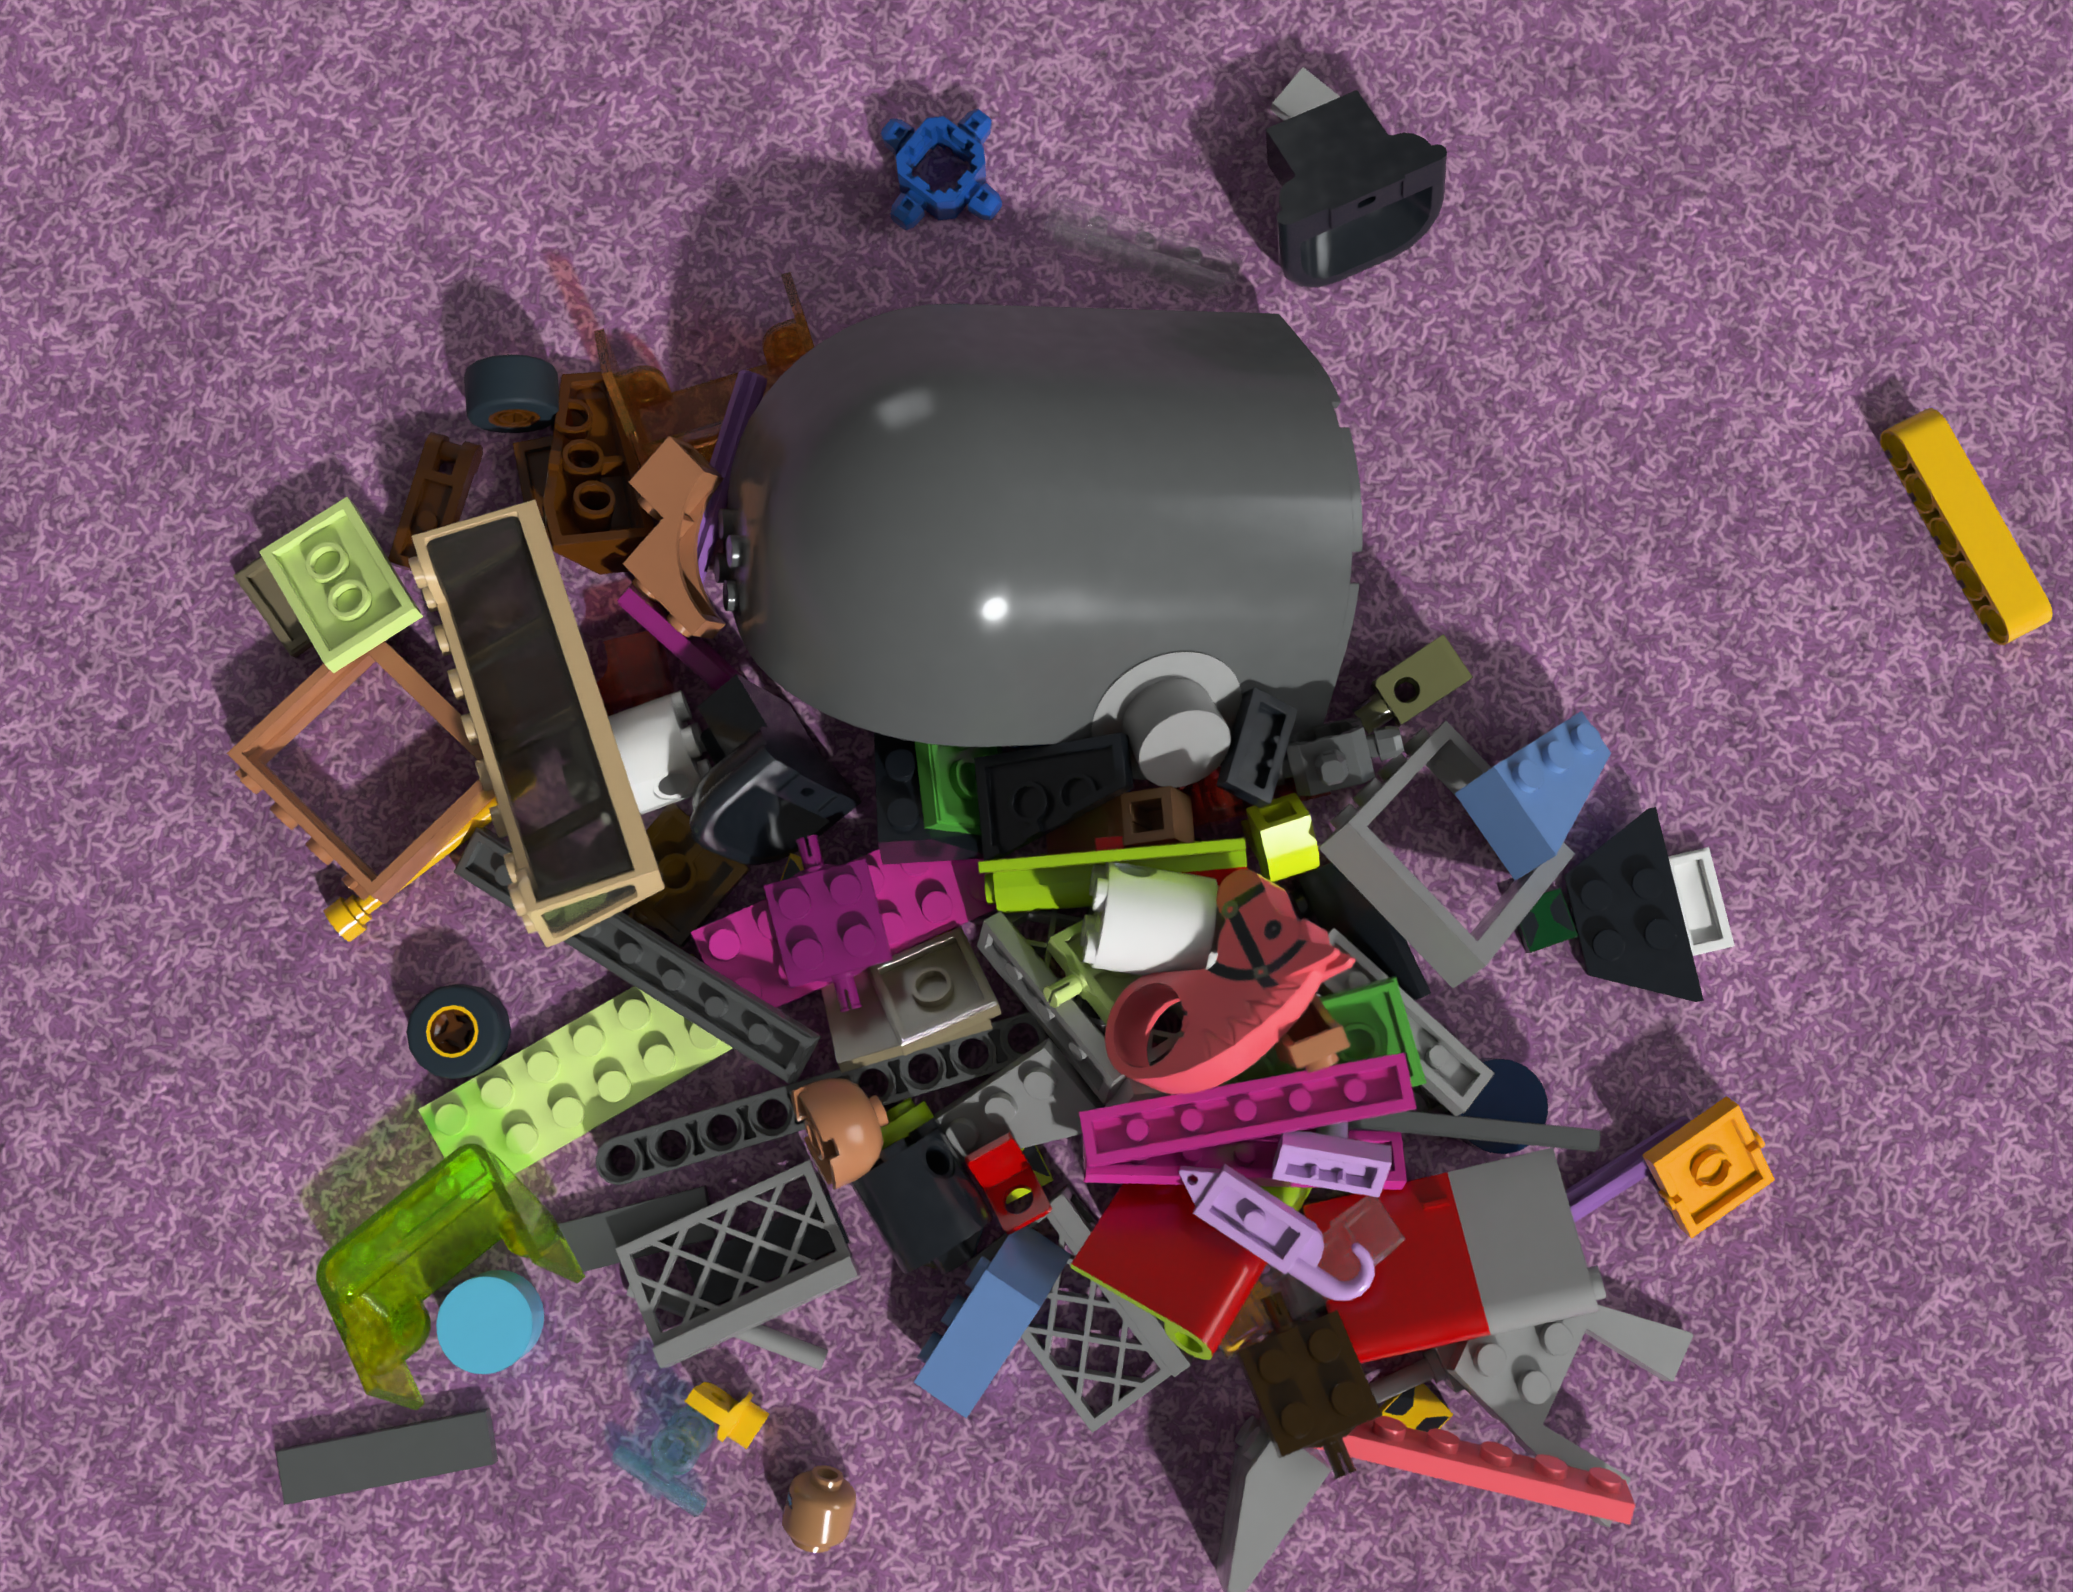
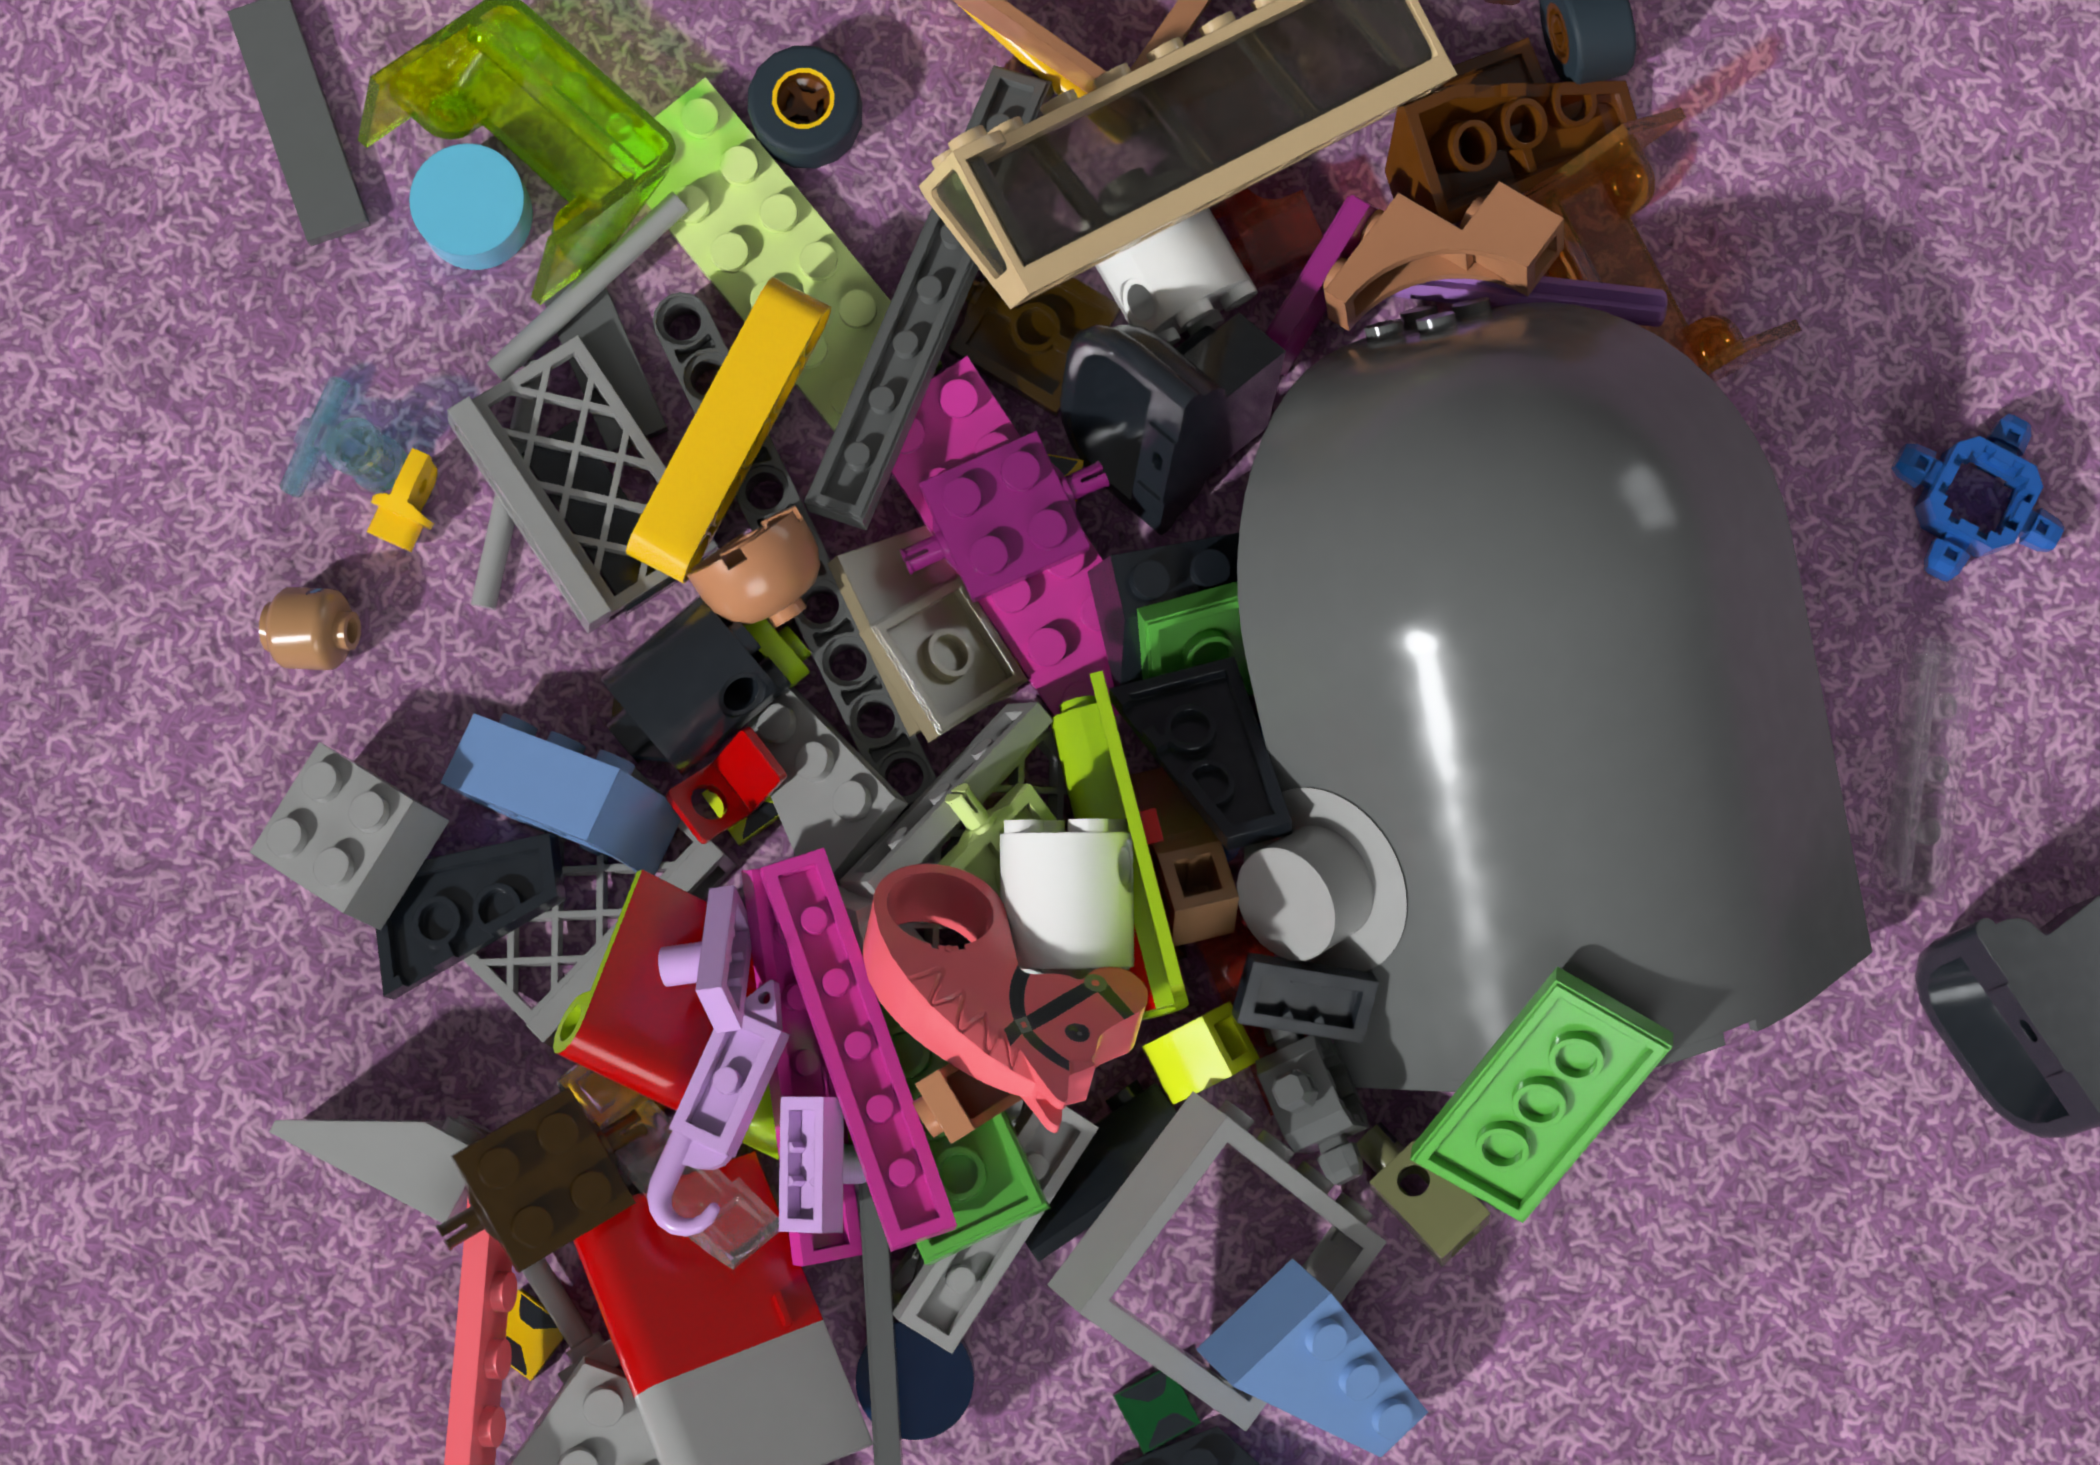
camera: 85 degrees right, 0 degrees up
(576, 1234) = (588, 286): none -> light grey bar
(718, 1136) = (728, 430): none -> yellow beam
(998, 1501) = (349, 836): none -> light grey brick
(1066, 1419) = (465, 905): none -> black wing
(1158, 1215) = (717, 963): none -> lavender tile
(1365, 574) = (1541, 1094): none -> bright green tile

